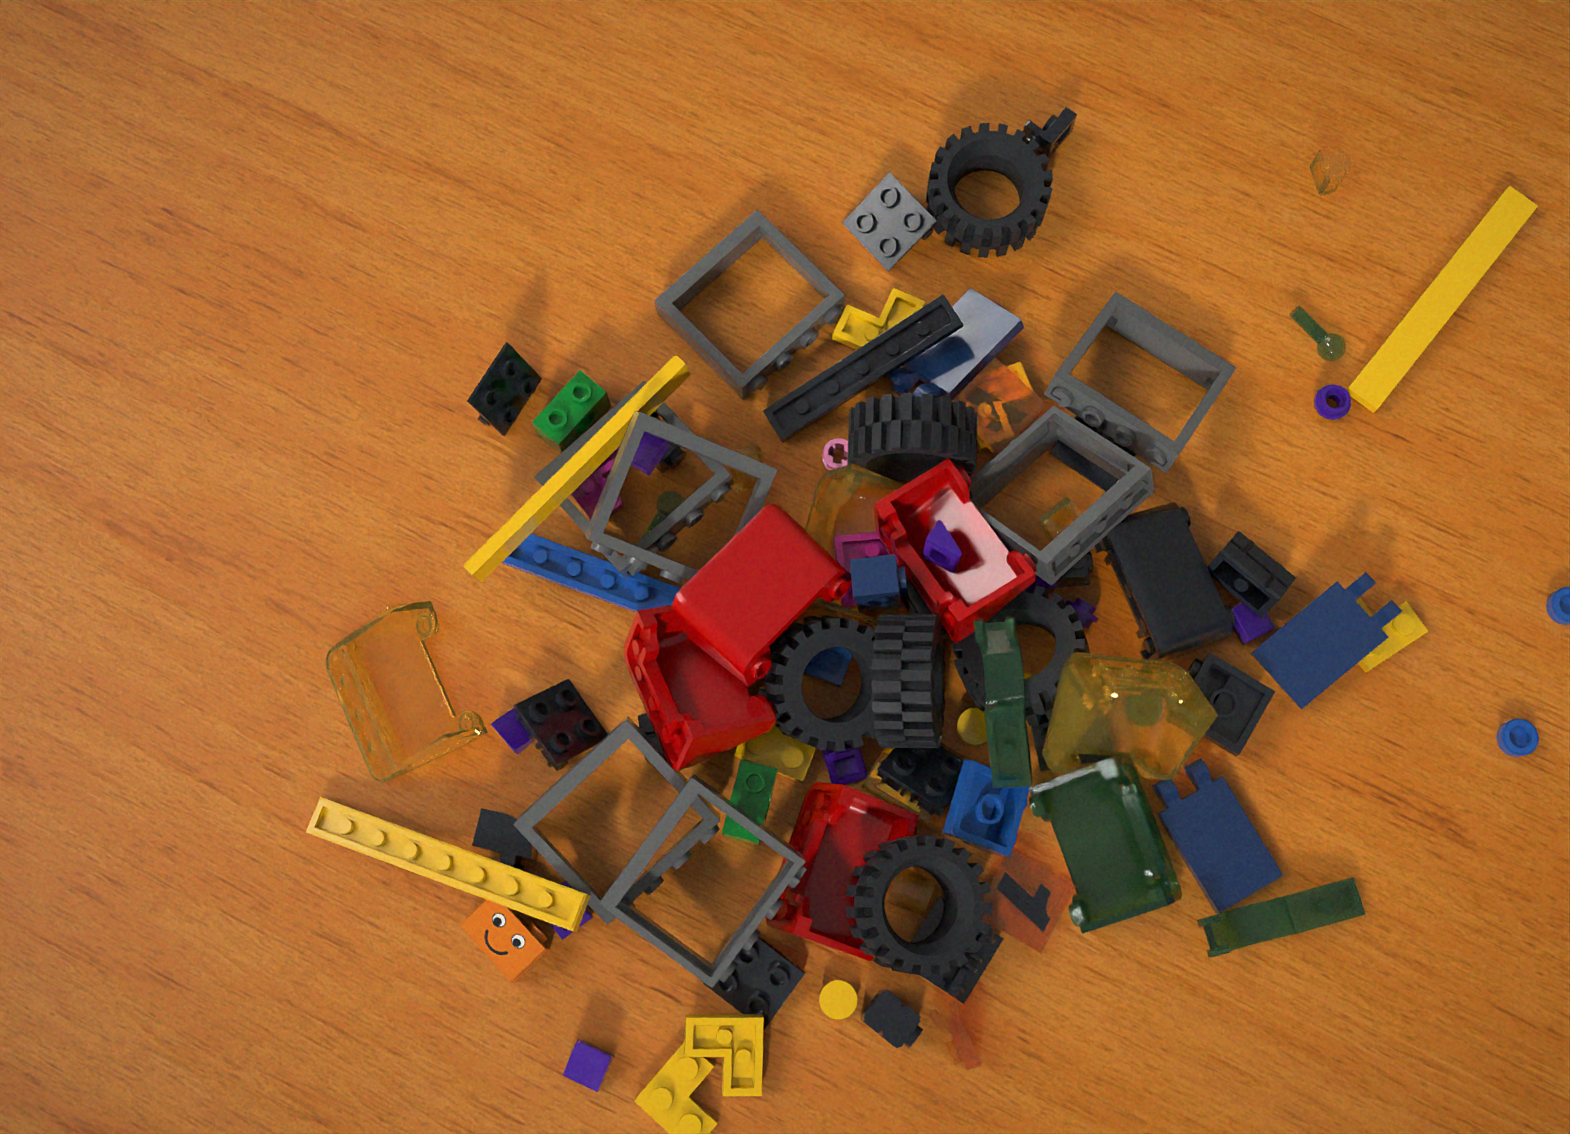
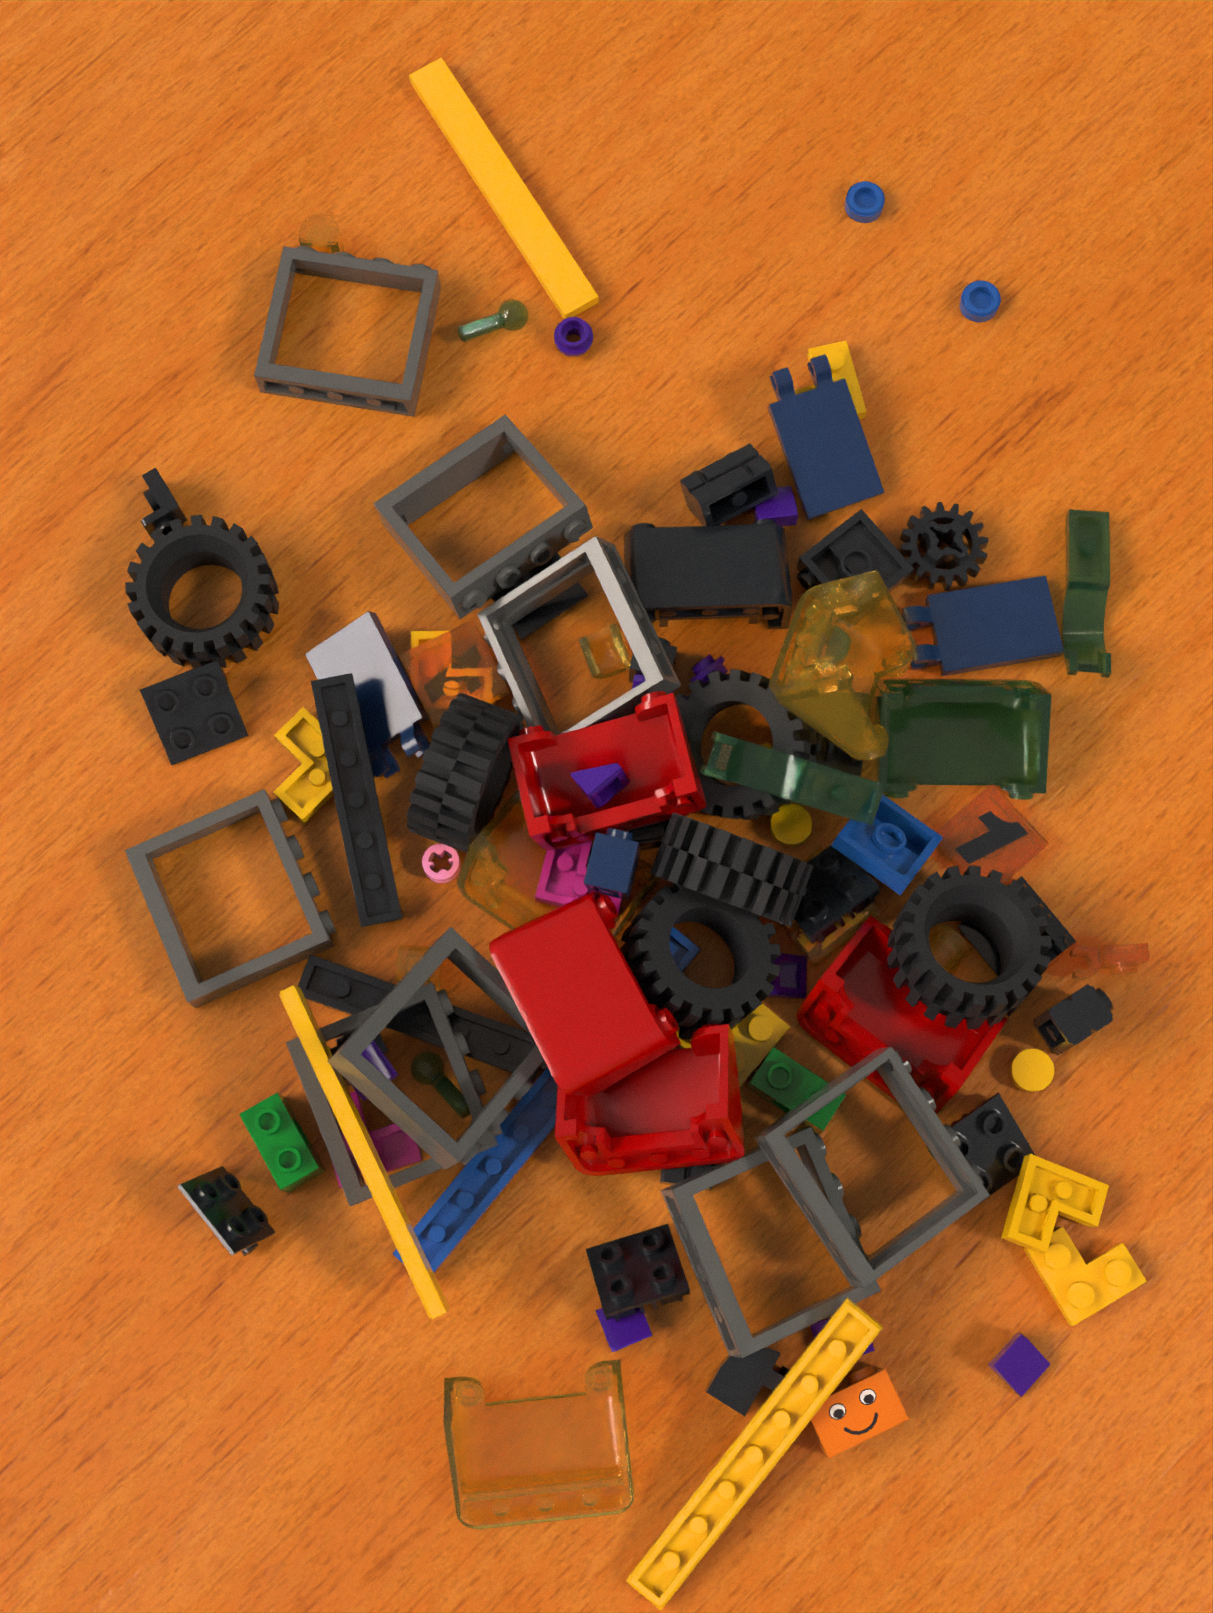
camera: 70 degrees left, 0 degrees up
(708, 422) = (355, 991): none -> black plate
(1205, 234) = (339, 388): none -> dark grey window
(1267, 791) = (950, 532): none -> black gear

